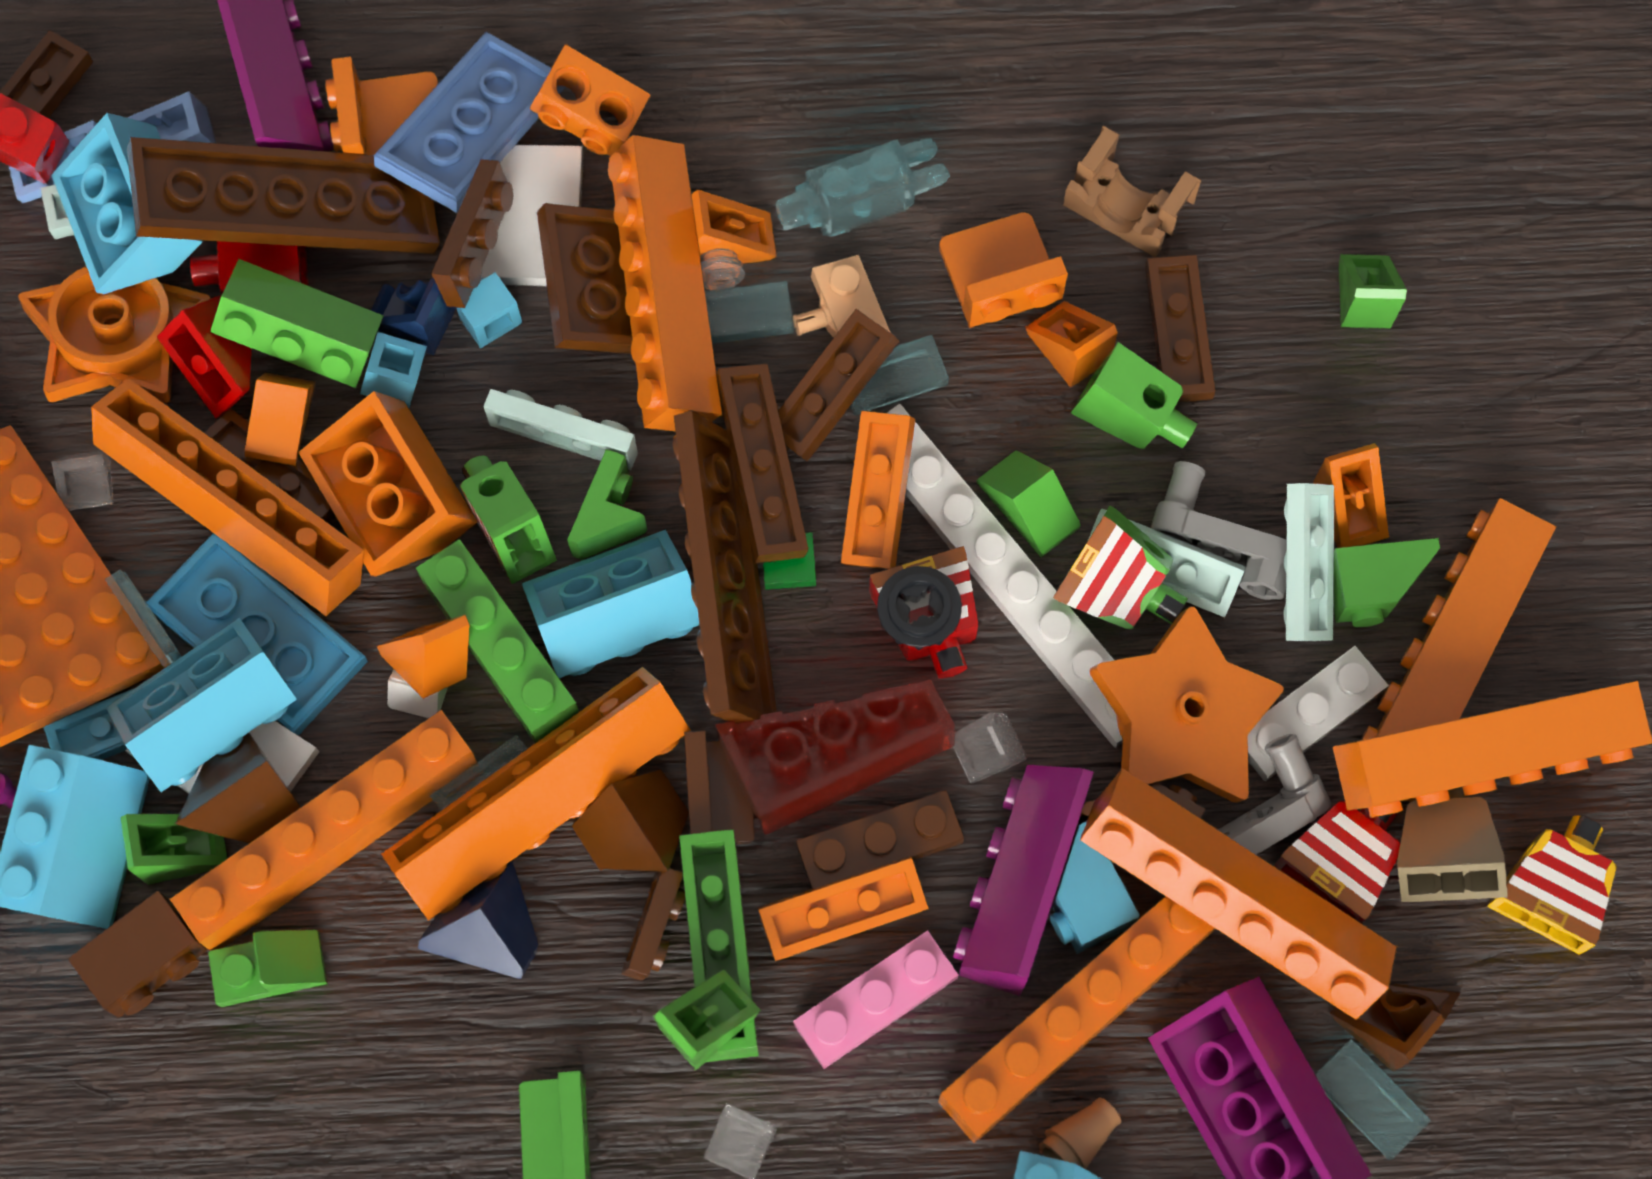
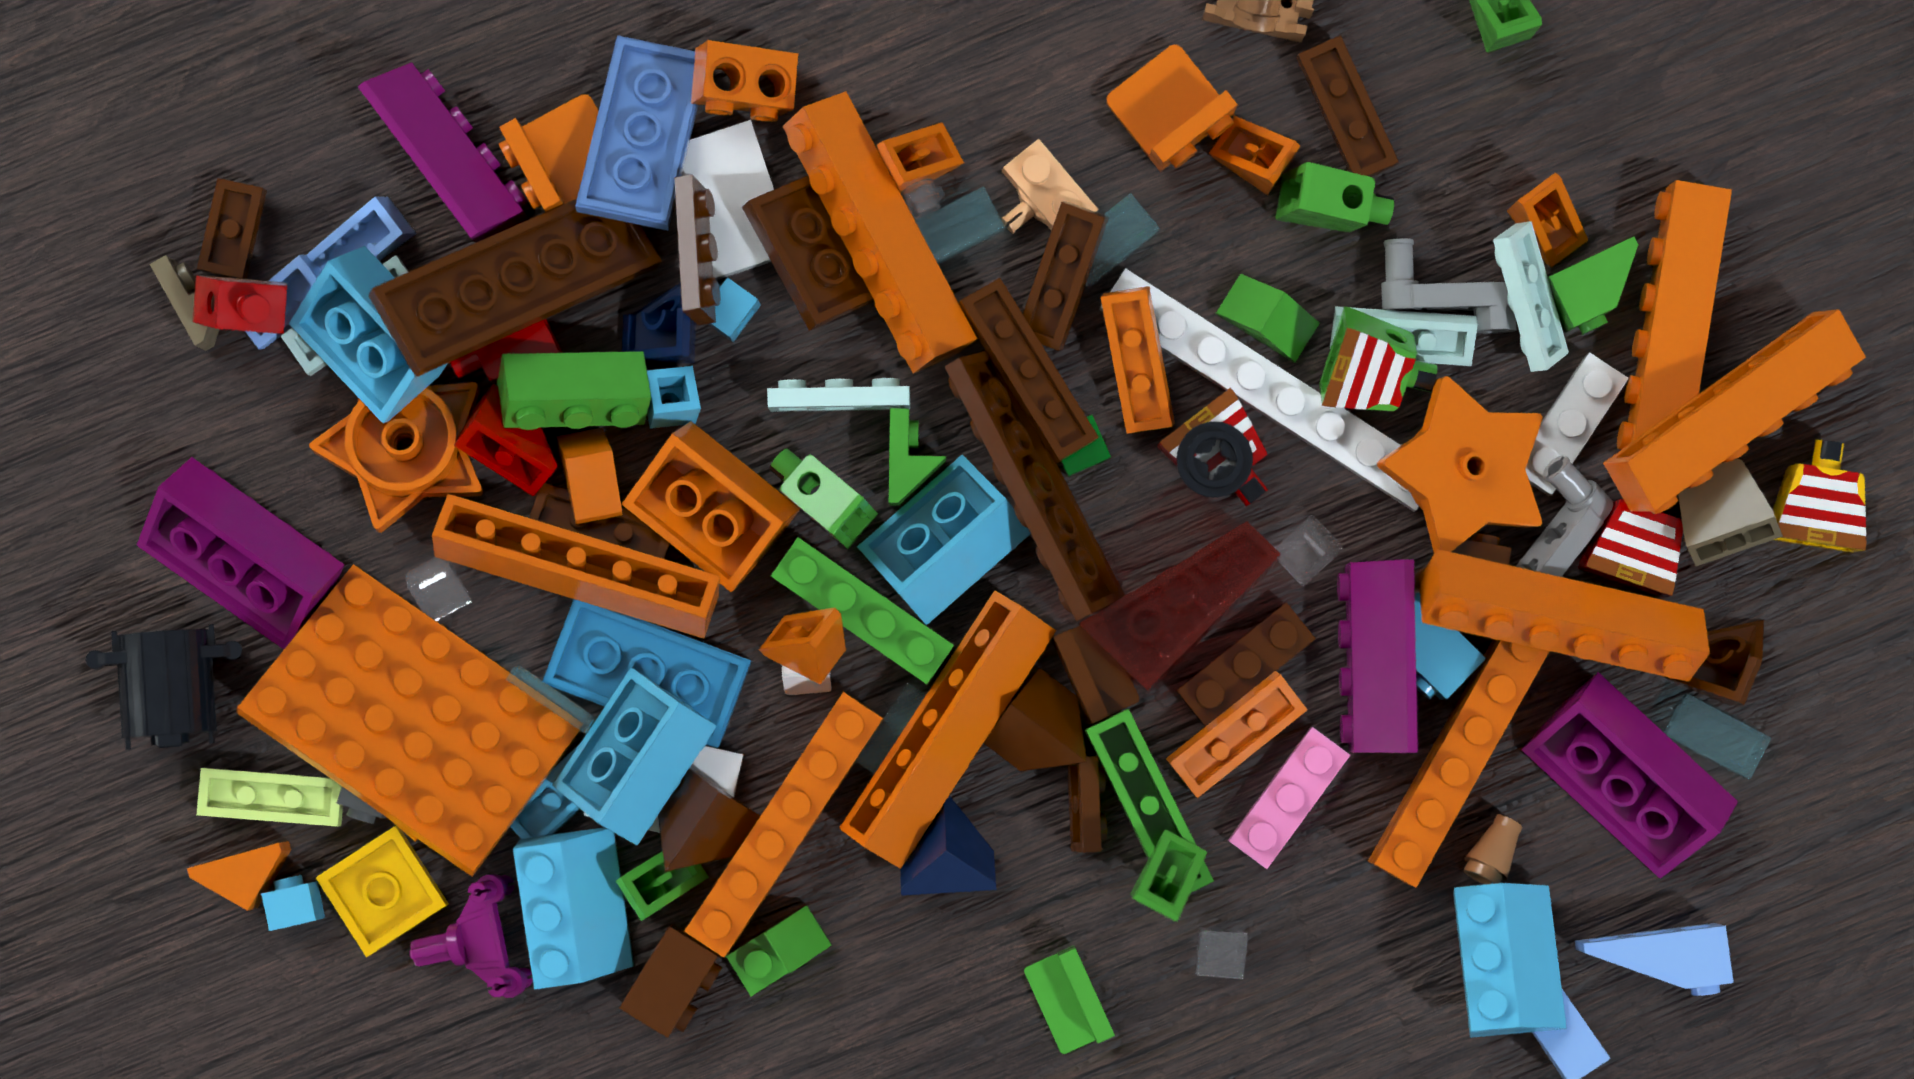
camera: 15 degrees left, 15 degrees up
(862, 188) = (1019, 75): clear light blue hinge -> none

